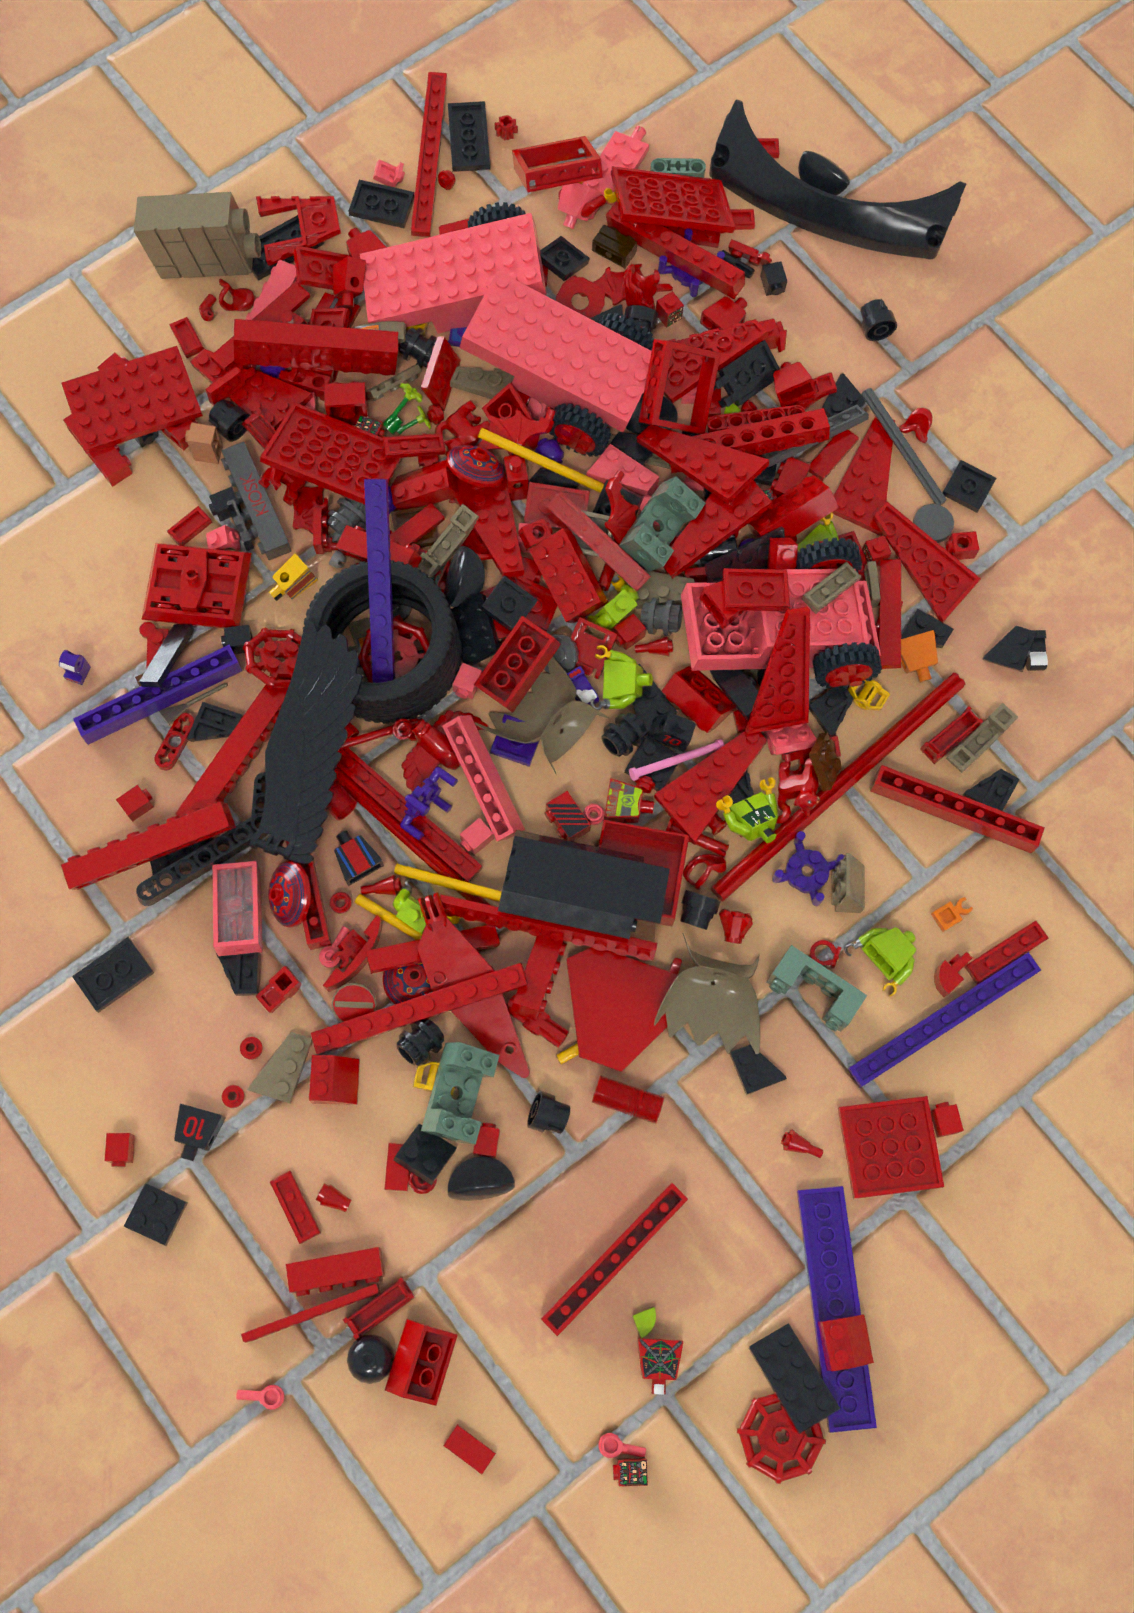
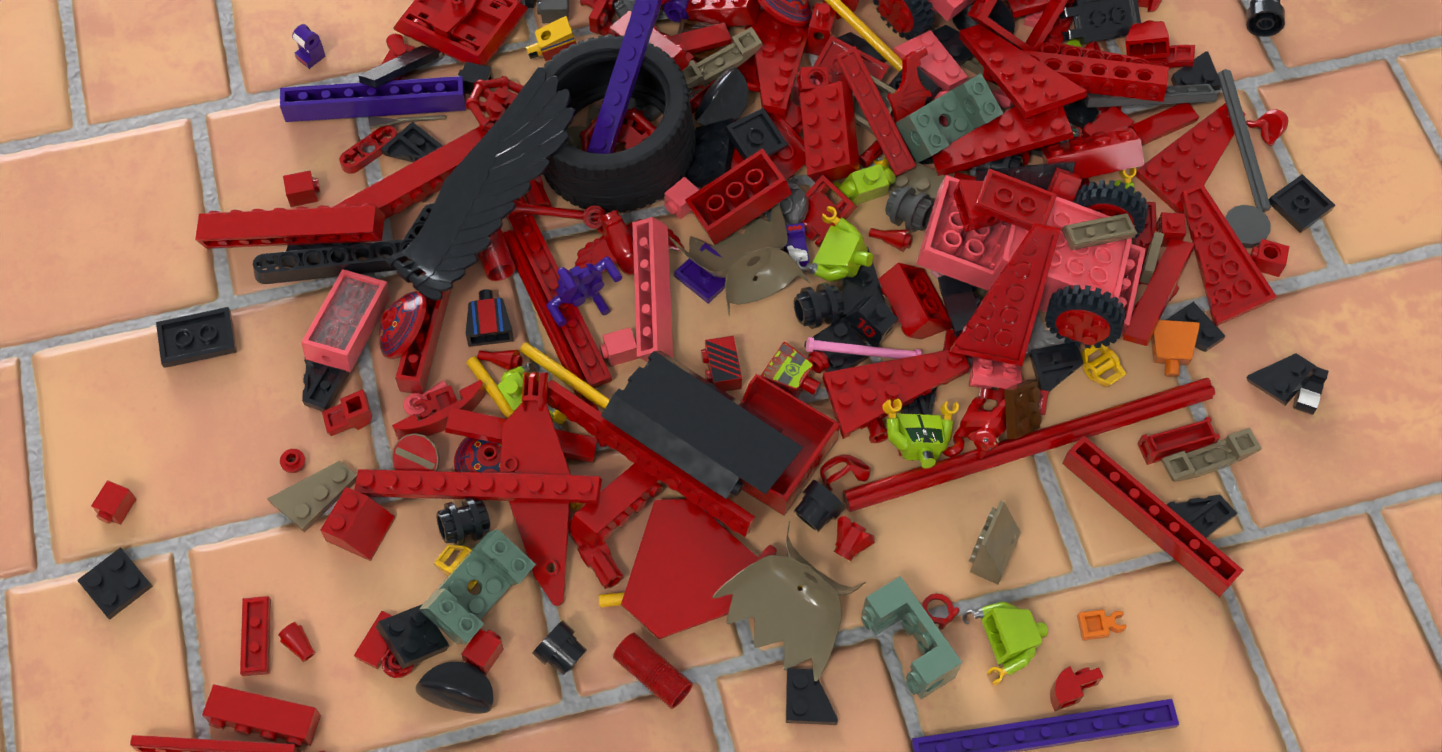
camera: 25 degrees right, 10 degrees down
(196, 1130) = (197, 516): black torso -> none
(239, 1099) = (255, 504): red plate -> none
(340, 896) = (452, 351): red plate -> none
(550, 449) = (869, 16): dark purple head -> none
(597, 809) = (751, 366): coral plate -> none
(630, 632) = (870, 212): red brick -> none
(703, 841) = (856, 443): red pin -> none
(811, 859) = (954, 503): dark purple plate -> none
(1006, 952) = (1172, 686): red tile -> none

